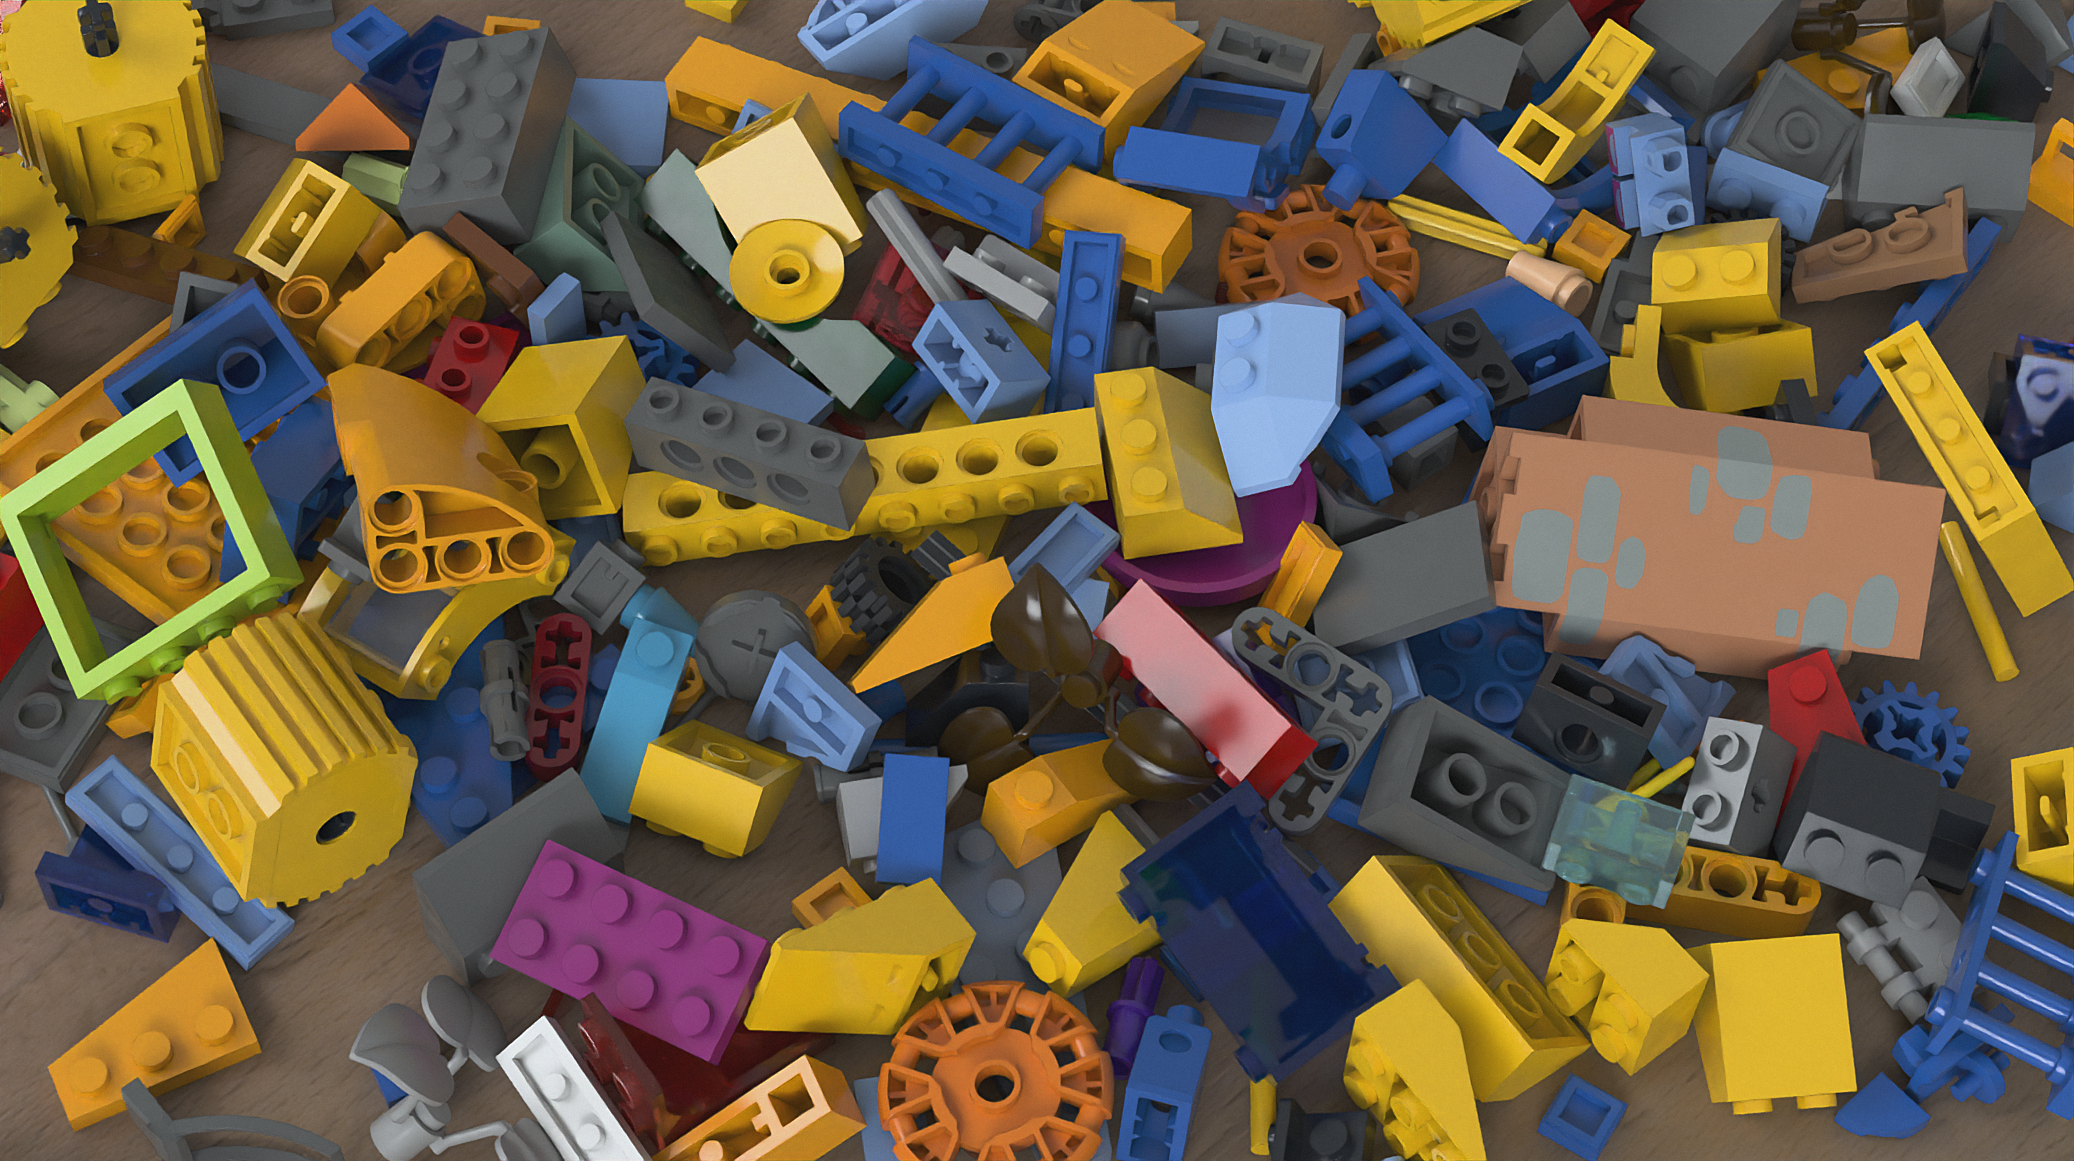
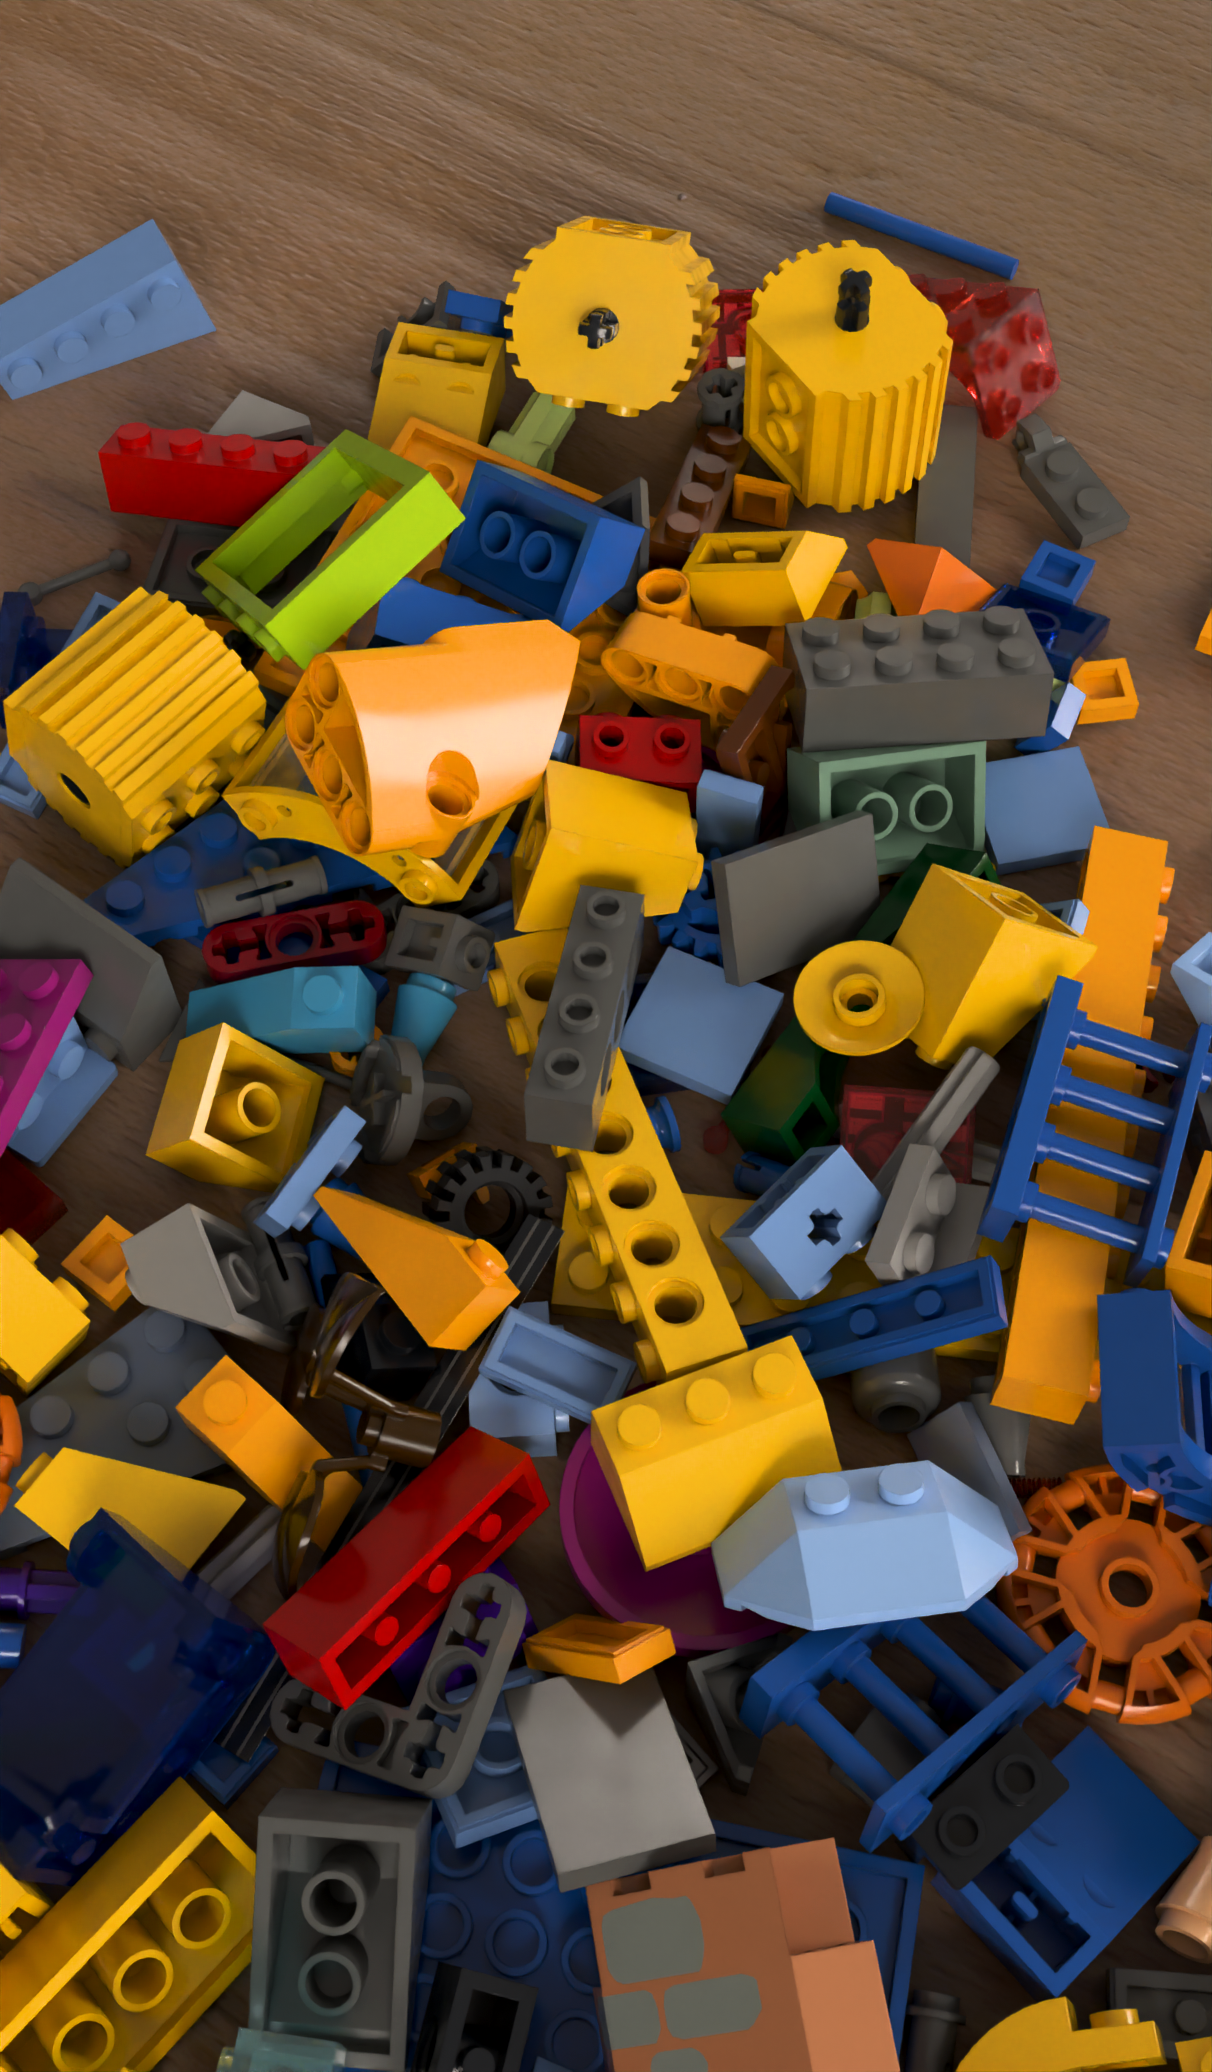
camera: 80 degrees right, 5 degrees up
(912, 819) = (157, 1286): blue tile -> none

